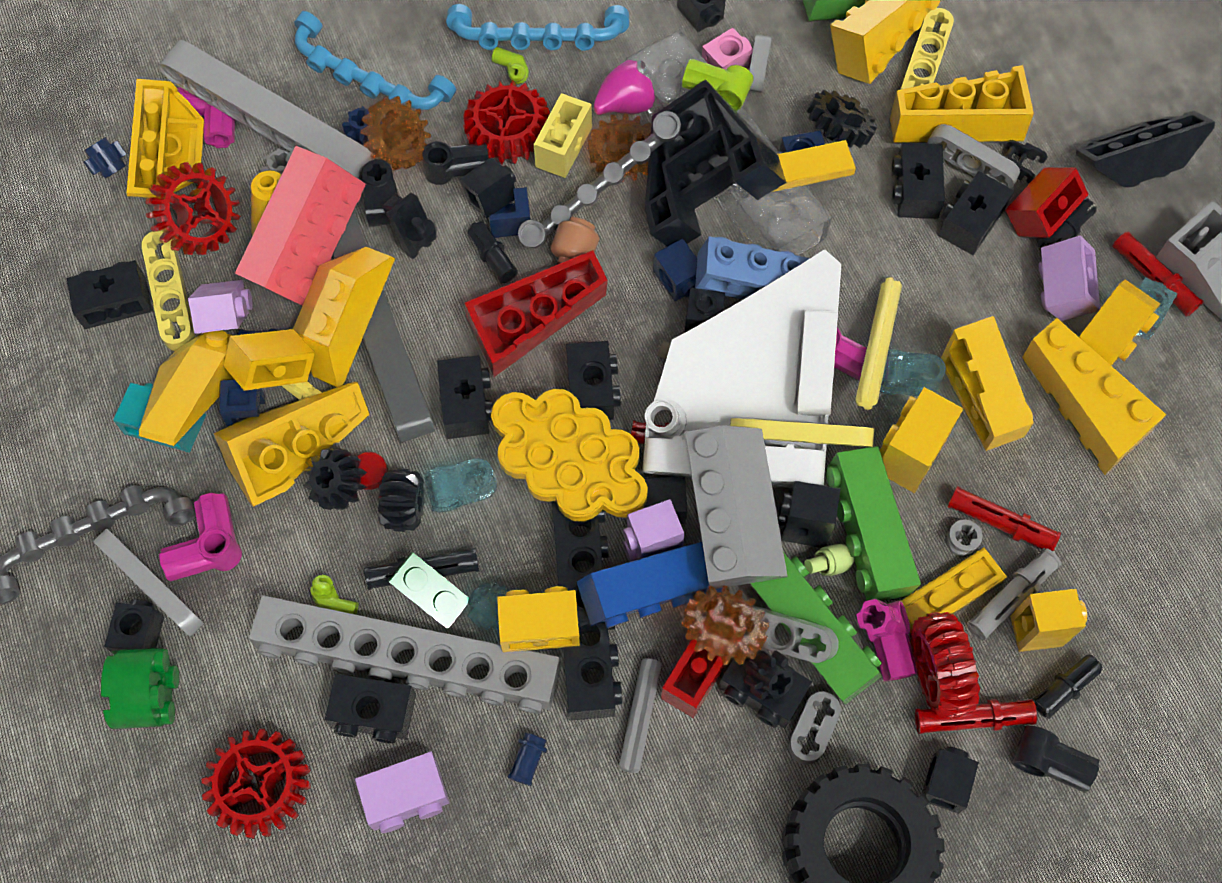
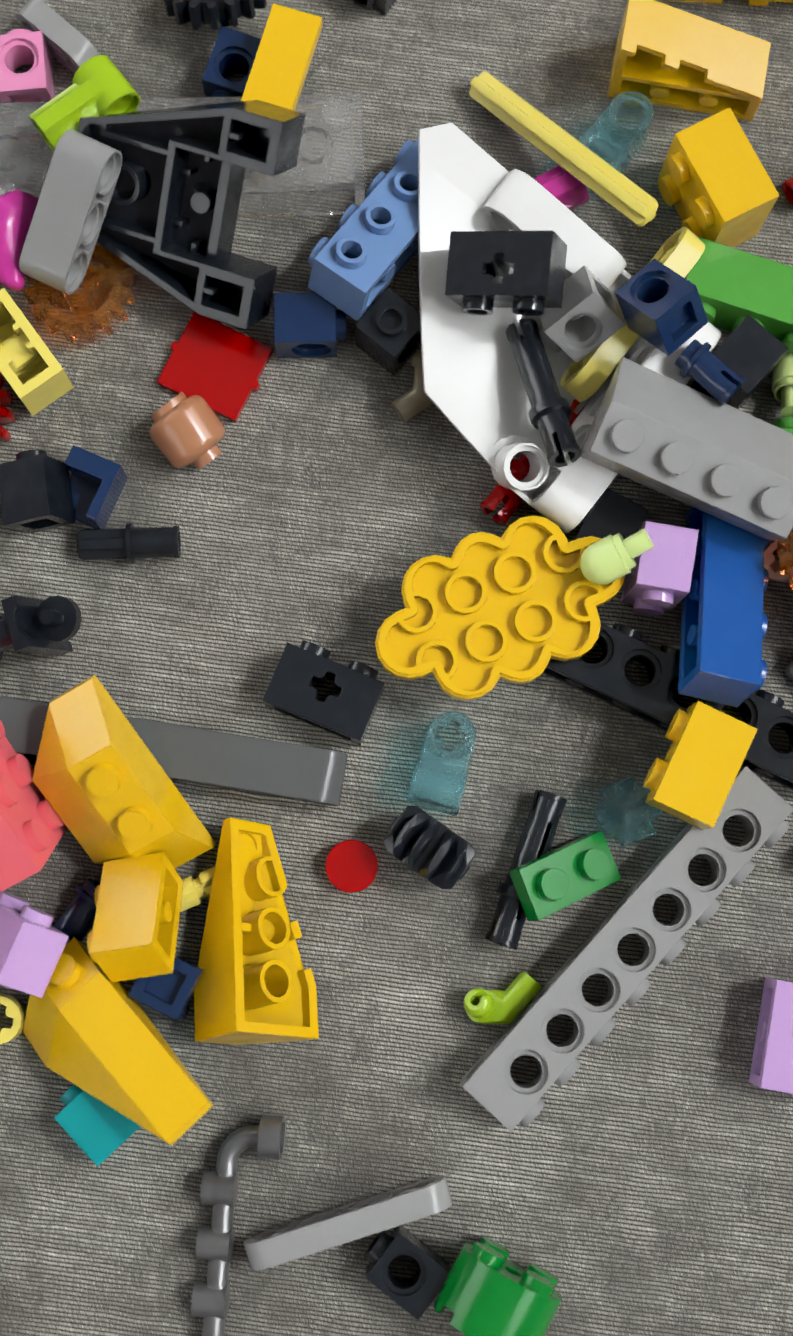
camera: 65 degrees left, 15 degrees up
(198, 554) = (348, 1143): dark pink piece -> none
(241, 791) = (716, 1208): red gear -> none
(335, 479) = (363, 930): black gear -> none
(352, 694) = (642, 1033): black brick -> none
(534, 308) = (258, 554): red wedge -> none
(593, 361) = (378, 497): black brick -> none
(624, 242) = (215, 365): none -> red piece
(634, 111) = (70, 211): none -> light grey beam
(636, 492) = (613, 556): none -> yellowish green cylinder
(665, 128) = (121, 214): flat silver bar -> none
(704, 410) = (549, 410): none -> black pin
(770, 336) = (482, 257): none -> black brick
(787, 473) = (709, 371): none -> dark blue pin
(789, 396) = (581, 296): none -> light grey brick
(805, 430) = (661, 307): none -> dark blue brick

